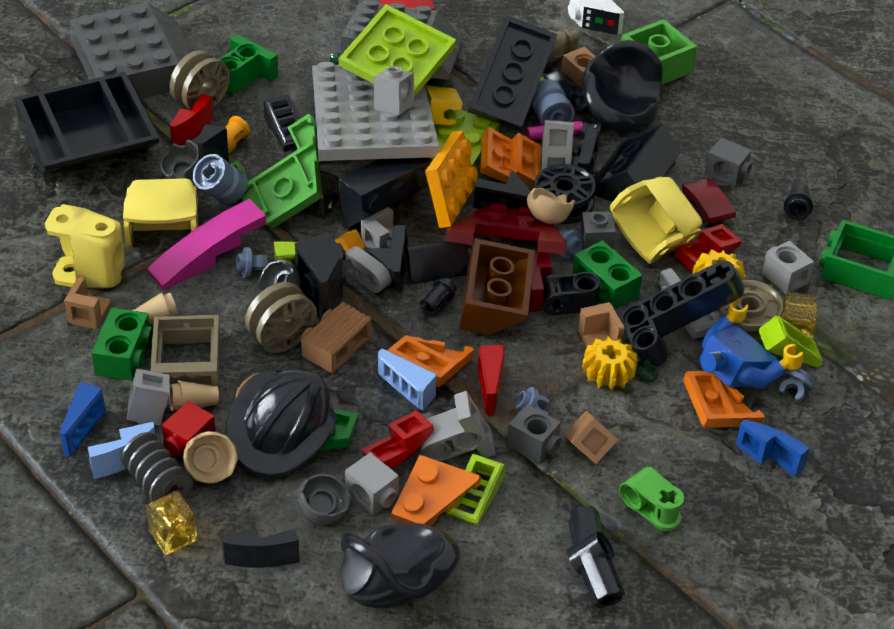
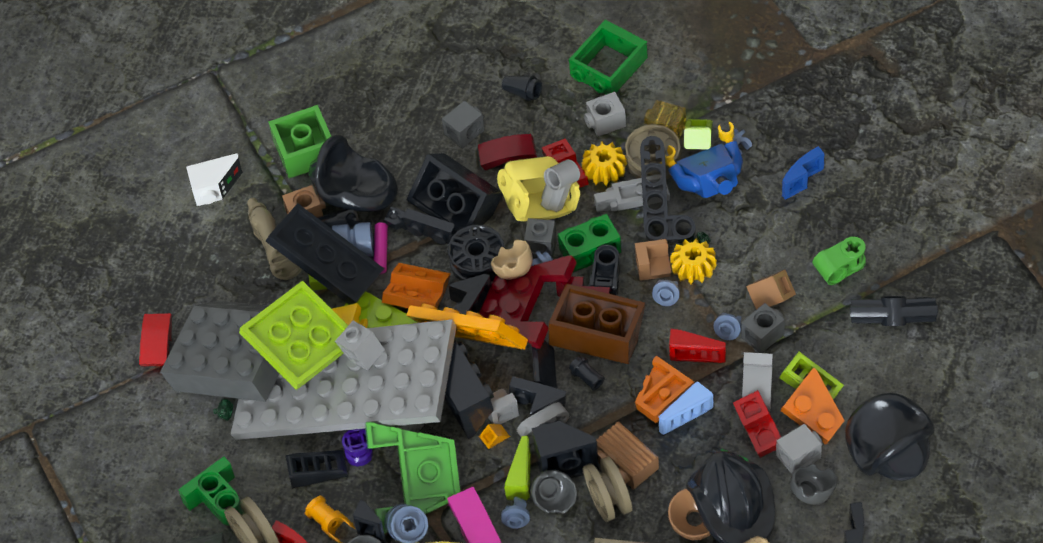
camera: 70 degrees left, 10 degrees up
(557, 143) = (418, 246): light grey tile -> none
(561, 347) = (666, 292): none -> sand blue plate
(660, 224) = (558, 183): none -> light grey piece
(716, 402) = (746, 198): orange wing -> none

